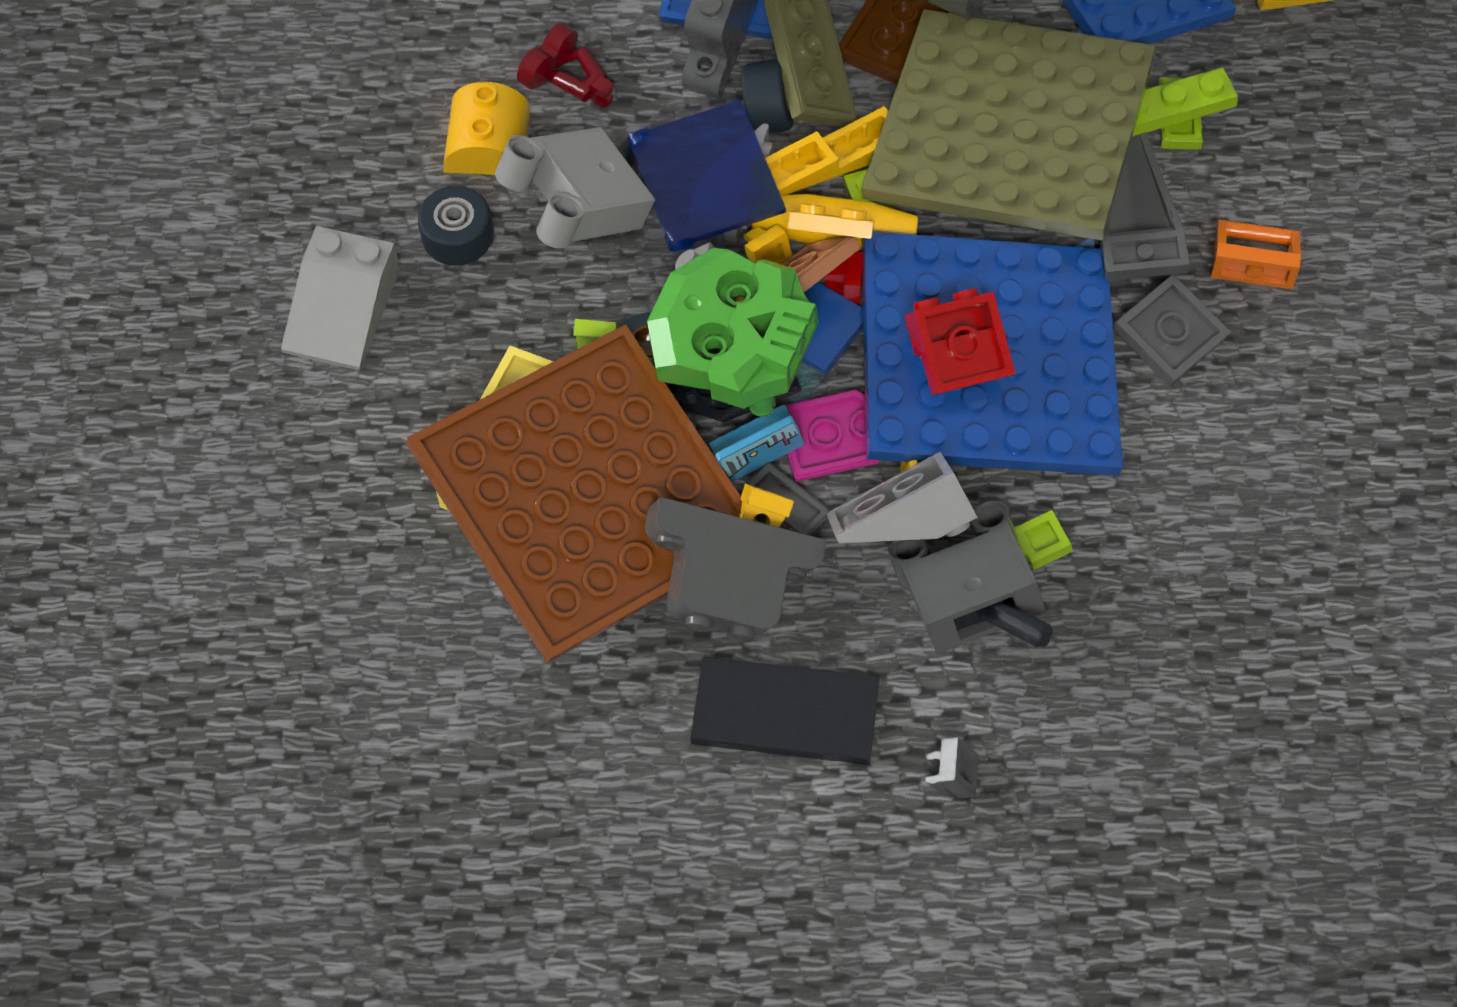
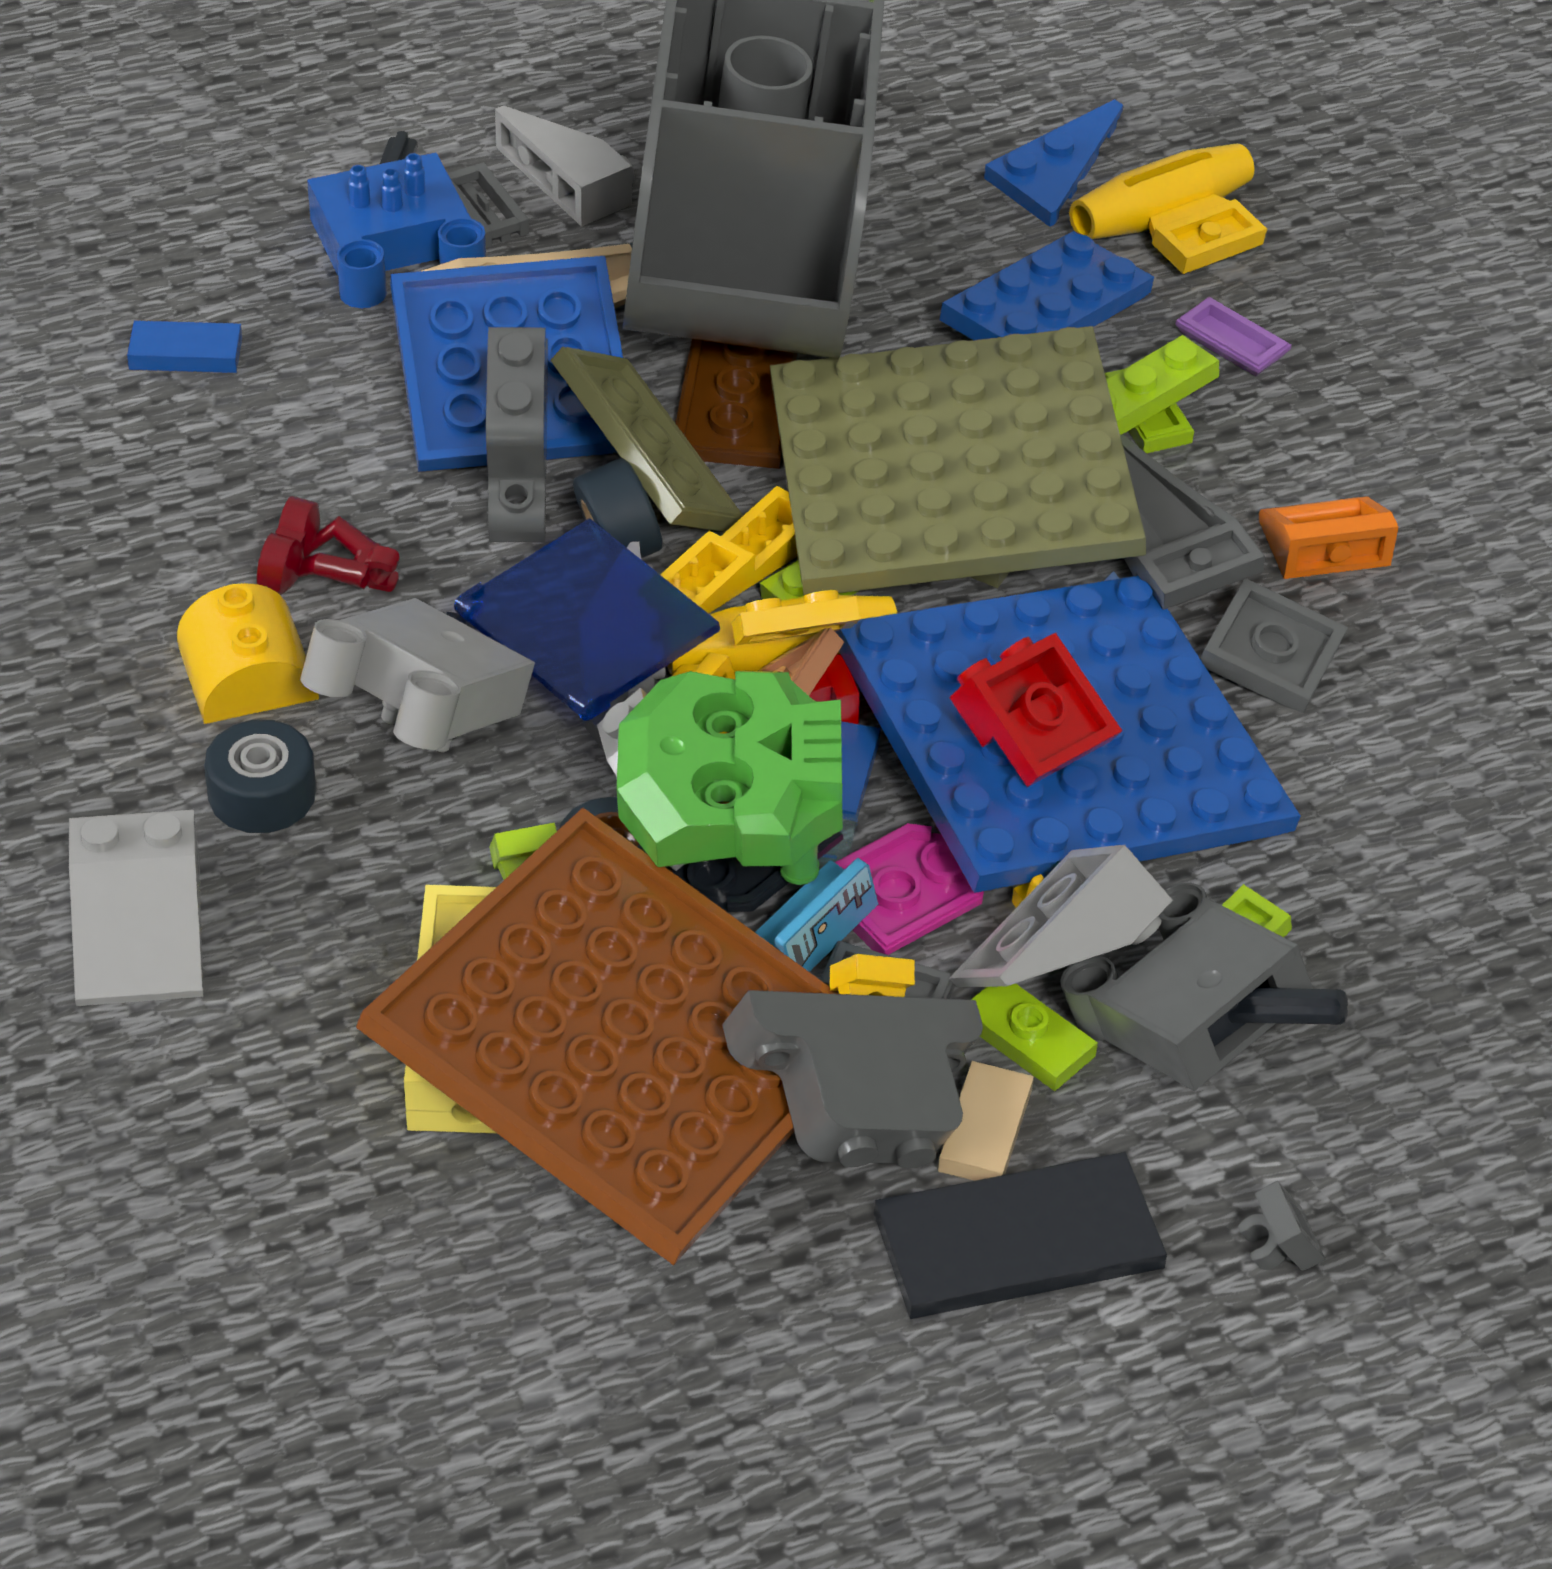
camera: 25 degrees left, 15 degrees down
(802, 624) = (992, 1116): none -> tan tile
(863, 573) = (1033, 1034): none -> lime plate
(1271, 71) = (1232, 336): none -> medium lavender tile

